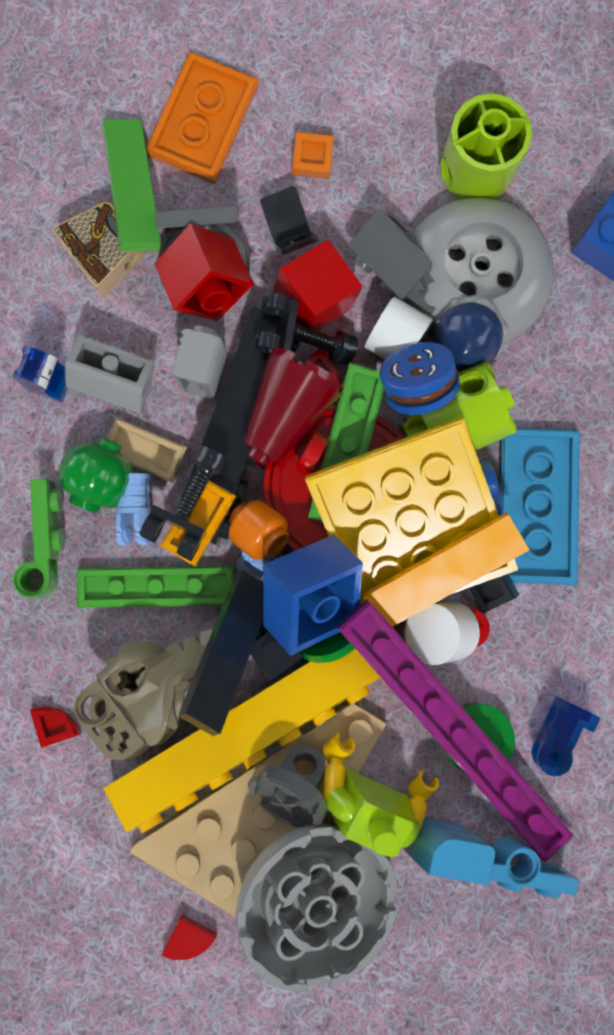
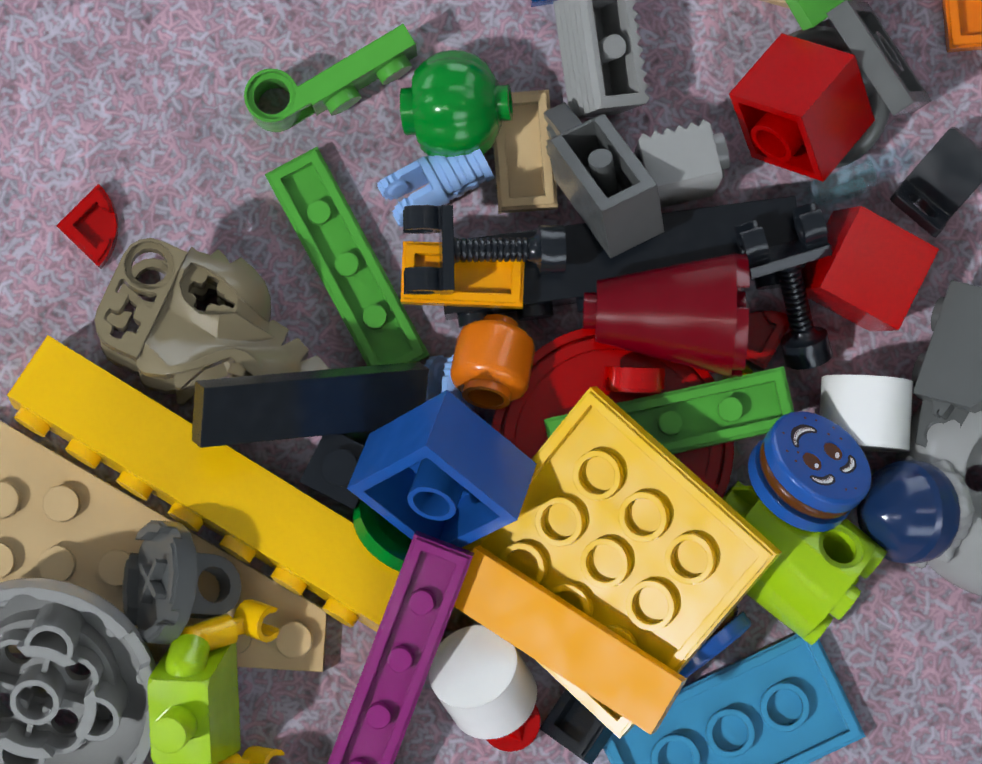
camera: 70 degrees right, 0 degrees up
(185, 409) = (603, 180): none -> dark grey hinge
(261, 277) = (843, 185): none -> clear light blue tile

